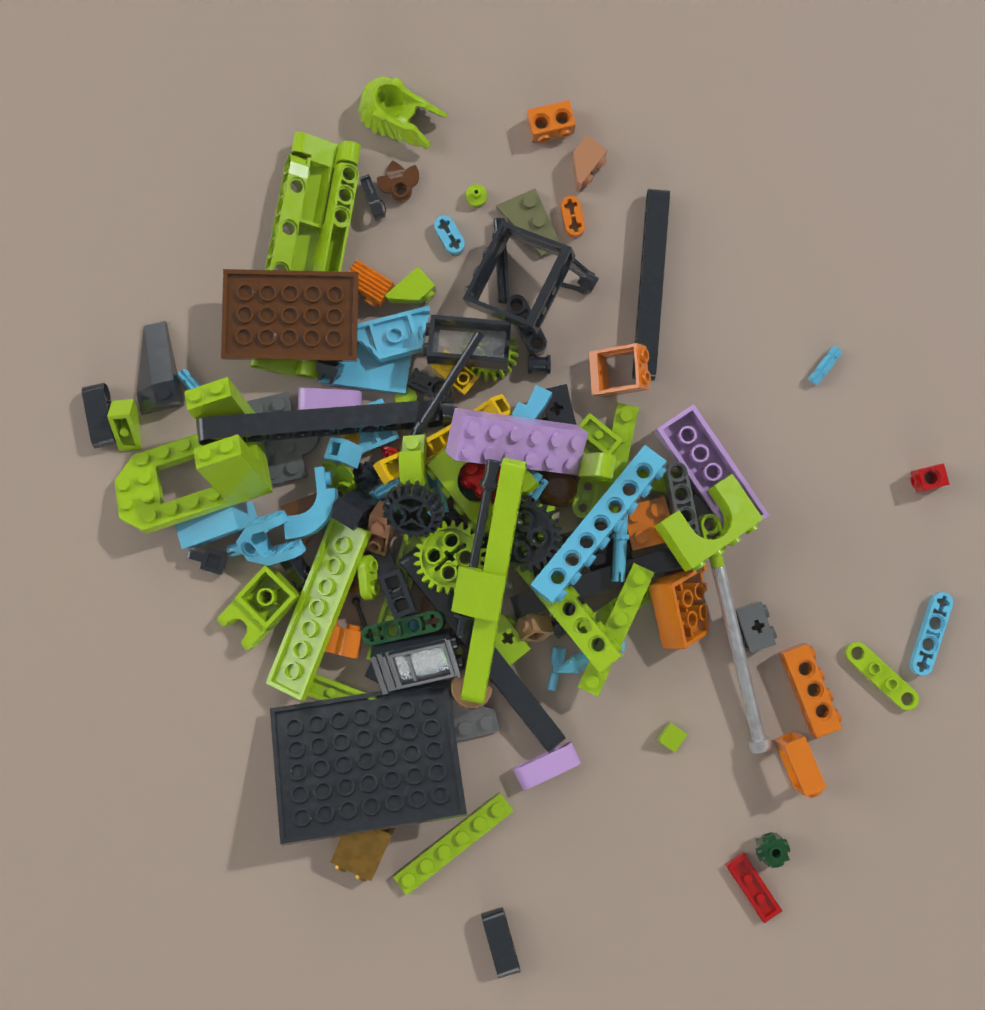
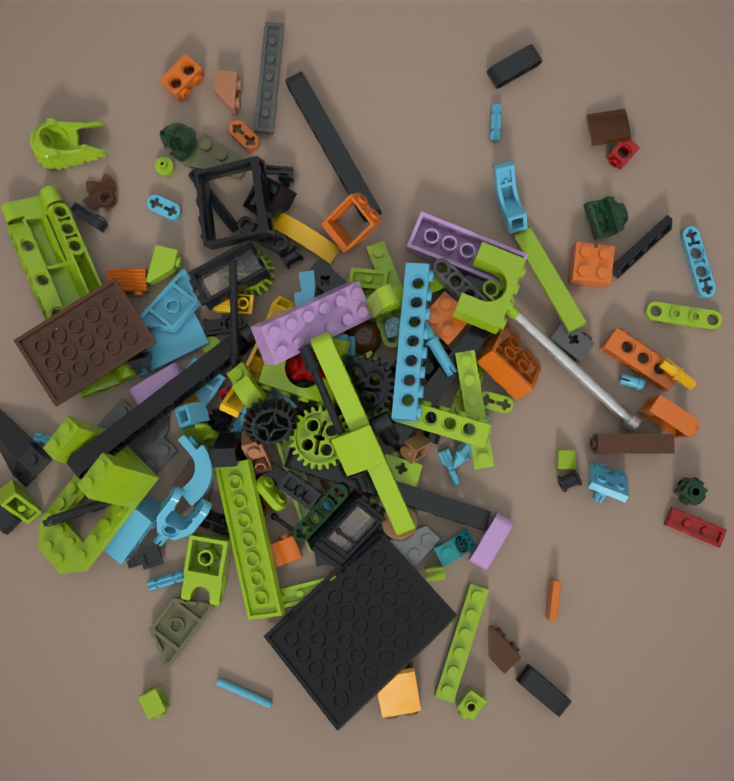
camera: 30 degrees left, 0 degrees up
(125, 700) = (154, 702): none -> lime brick
(172, 471) = (74, 513): none -> black bar
(196, 643) = (178, 625): none -> olive wing
(213, 592) = (165, 580): none -> medium azure axle
(215, 749) = (244, 692): none -> medium azure bar
(428, 901) = (470, 696): none -> lime brick
(472, 759) = (434, 572): none -> lime slope
(485, 877) = (500, 651): none -> reddish brown slope
(507, 748) = (454, 547): none -> teal slope
(508, 181) = (180, 140): none -> clear green cylinder
(518, 588) = (384, 427): none -> black piece
(565, 353) = (306, 237): none -> yellow slope
(567, 299) = (280, 198): none -> black slope
(568, 863) = (553, 599): none -> orange tile
(590, 497) = (392, 327): none -> medium azure tile
(634, 176) = (269, 78): none -> dark grey plate
(647, 634) = (497, 398): none -> lime beam
(661, 759) = (569, 480): none -> black bush
(697, 786) = (607, 482): none -> medium azure plate
(747, 766) = (632, 444): none -> reddish brown slope
(773, 554) = (550, 280): none -> lime tile
(787, 446) = (507, 197): none -> medium azure arch
(788, 706) = (633, 381): none -> medium azure pin
(824, 566) = (591, 265): none -> orange piece
(836, 728) = (678, 373): none -> yellow axle
(870, 529) = (606, 217): none -> clear green slope
(880, 323) = (514, 66): none -> black beam
(886, 582) = (642, 246): none -> black tile
(932, 443) = (608, 127): none -> reddish brown slope

